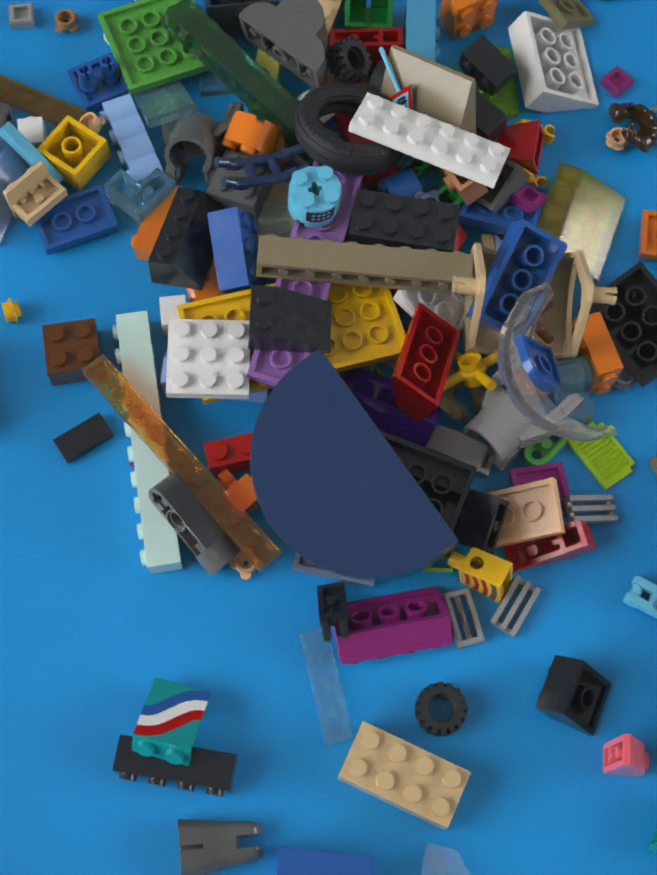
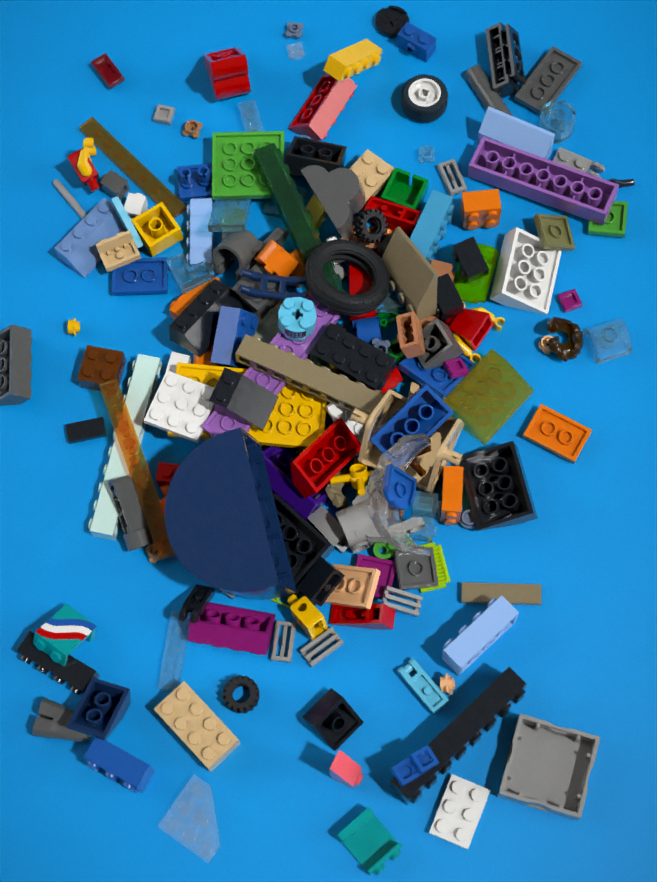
camera: 30 degrees right, 0 degrees up
(92, 122) = (177, 211): light nougat plate -> none
(266, 807) = (100, 709): none -> dark blue slope
(402, 97) = (392, 266): medium azure piece -> none
(429, 140) = (393, 305): white plate -> none
(589, 464) = (415, 570): none -> dark grey plate

